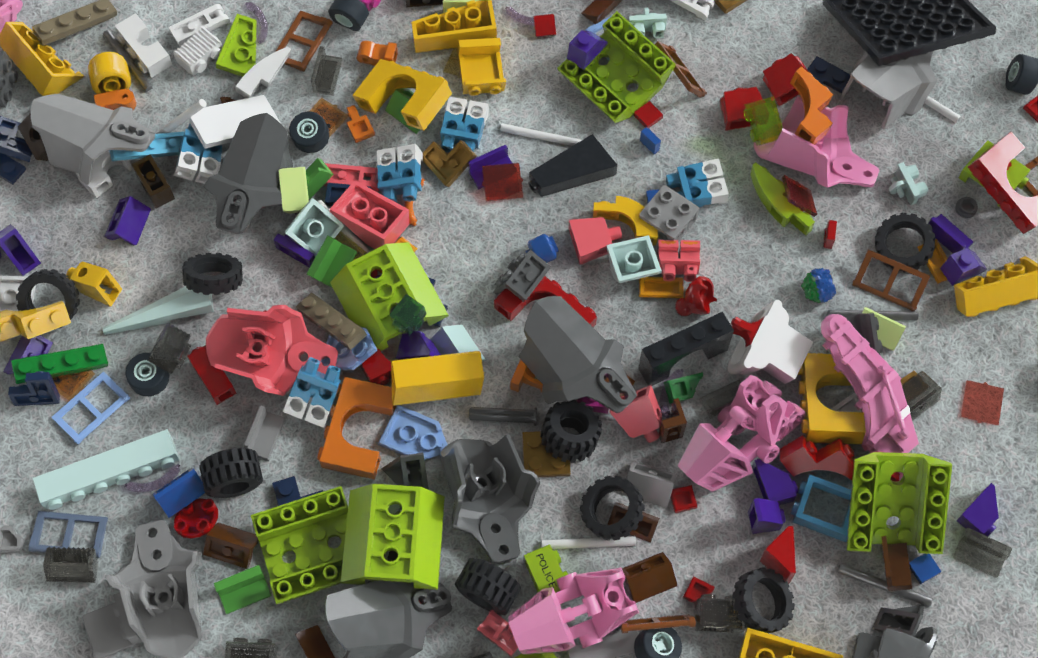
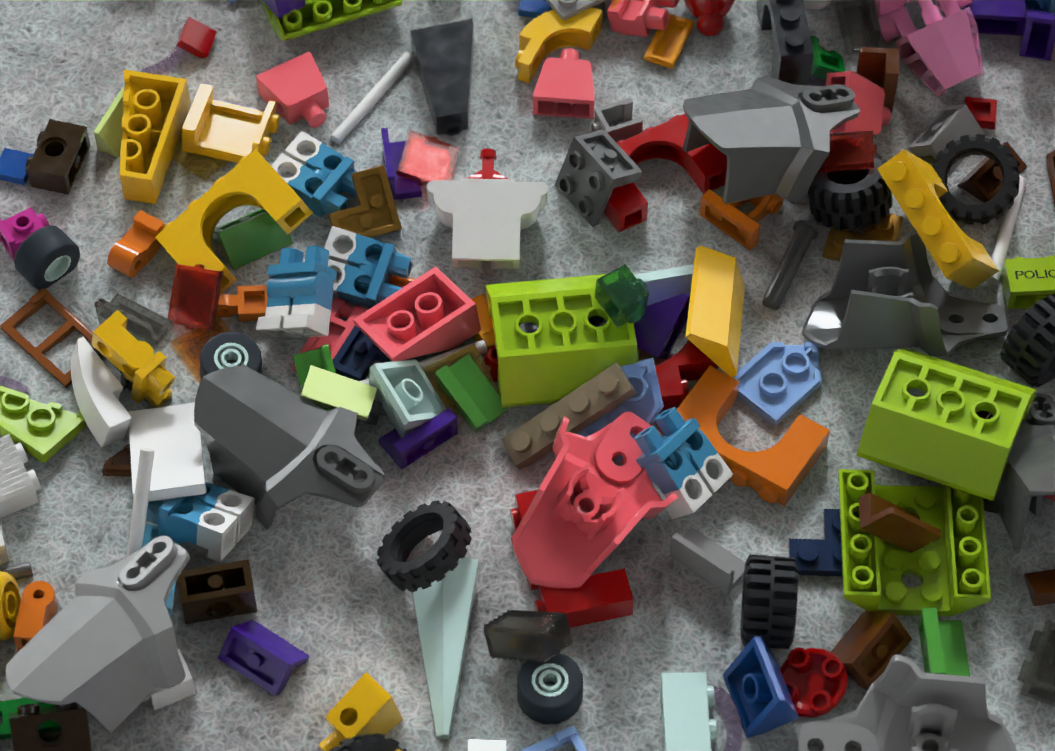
camera: 70 degrees left, 10 degrees down
(283, 79) = (135, 359): none -> yellow hips
(311, 528) = (895, 524): none -> reddish brown panel
(346, 95) = (195, 296): none -> clear red piece
(362, 146) = (299, 295): none -> dark azure hips
(408, 470) = (842, 394): dark grey slope -> none
(457, 224) = (486, 215): none -> white piece
(525, 92) = (296, 90): none -> coral torso
(529, 501) = (918, 194): none -> yellow arch
(543, 247) = (555, 142): blue head -> none
(574, 277) = (617, 120): none -> light grey window
(591, 417) = (850, 152): none -> clear red piece
(633, 259) = (625, 49): light aqua slope -> none

